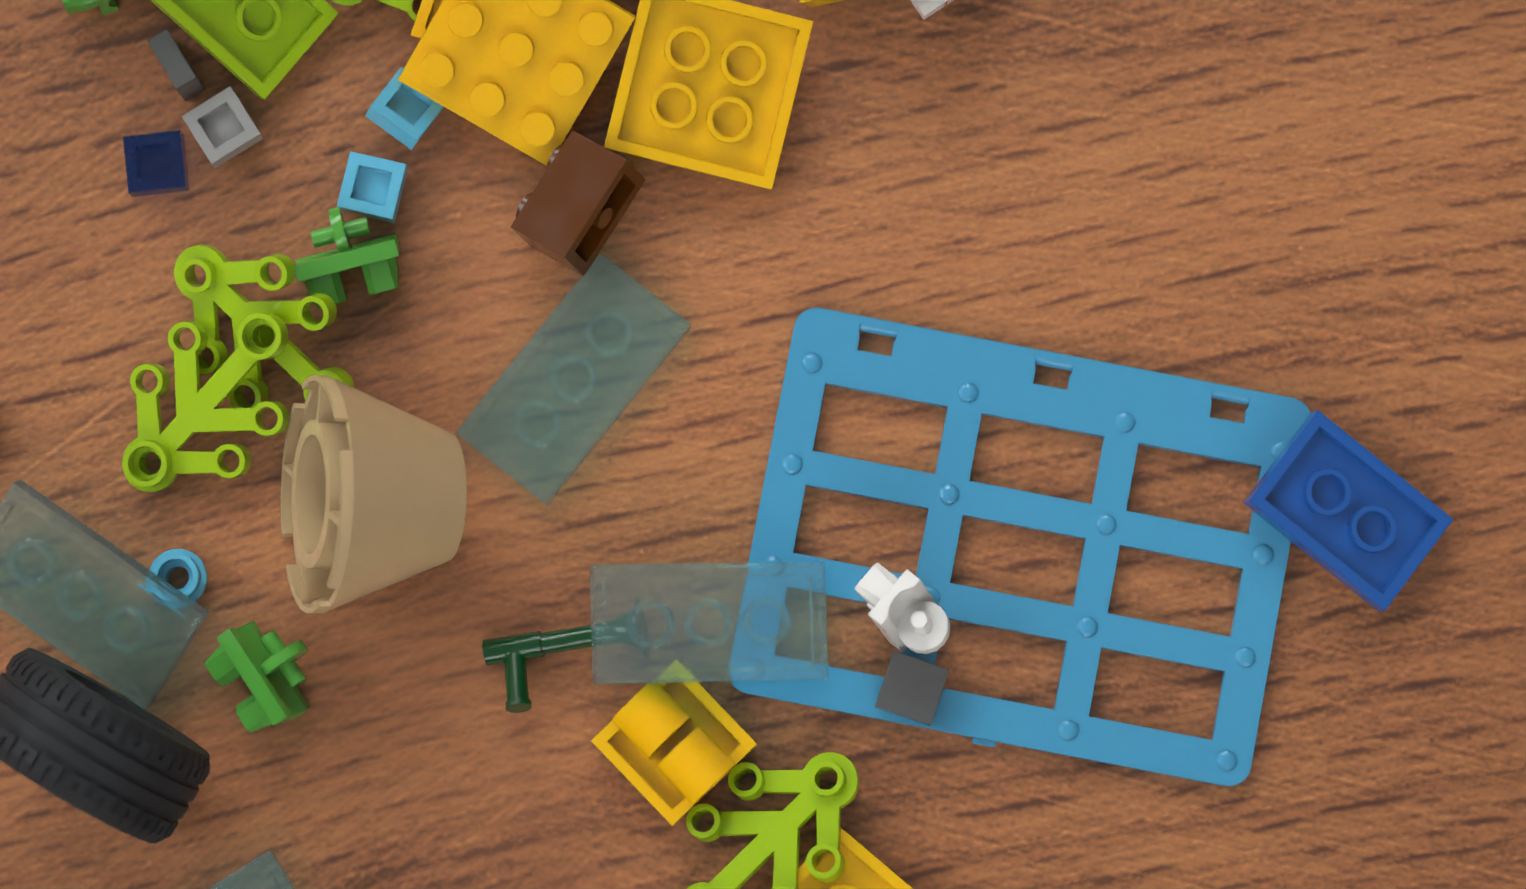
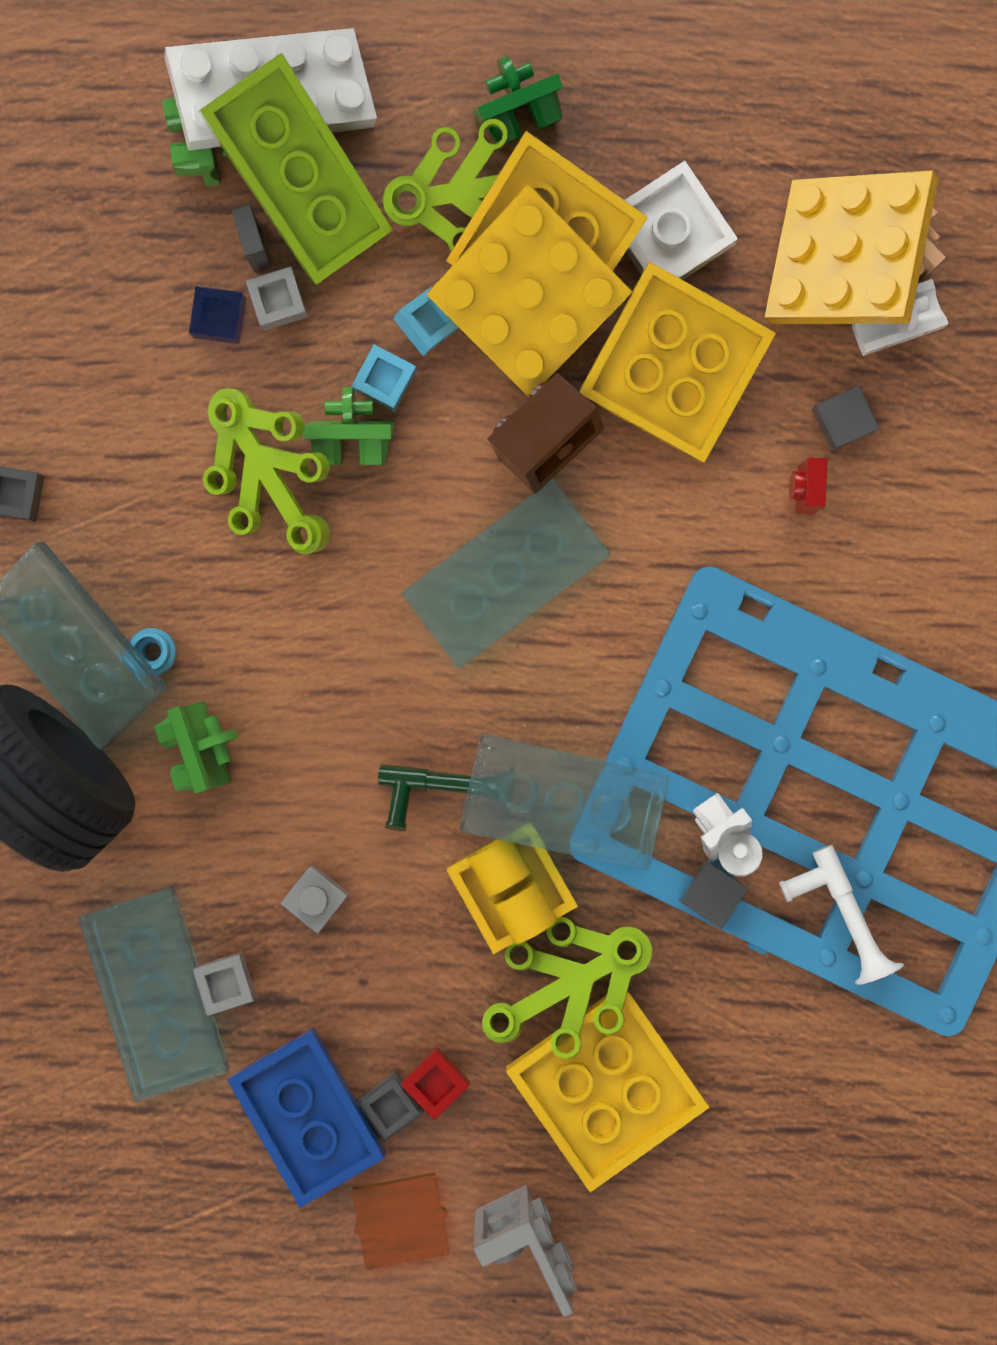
camera: 20 degrees right, 5 degrees up
(198, 407) = (200, 519): lime plant -> none
(365, 495) = (315, 629): tan cone -> none
(444, 819) = (314, 898): none -> light grey plate
(899, 185) = (809, 485): none -> red plate
(925, 95) = (845, 418): none -> dark grey tile
(1044, 628) = (831, 873): none -> white piece

